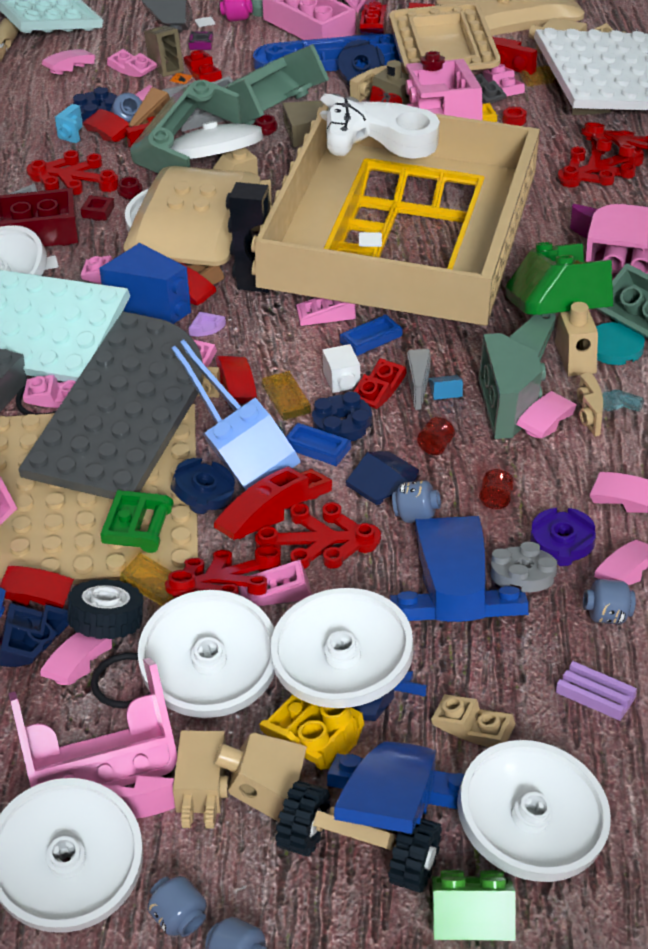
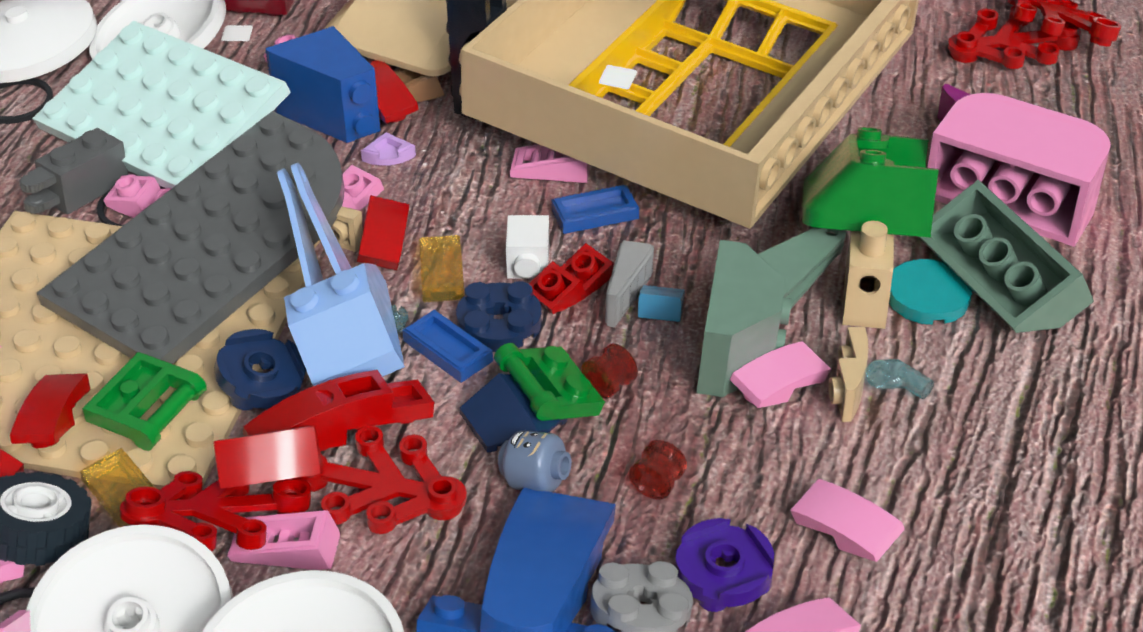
camera: 15 degrees right, 0 degrees up
(76, 540) = (48, 410): none -> red slope
(246, 535) = (268, 457): none -> slope
(401, 450) = (550, 382): none -> green plate

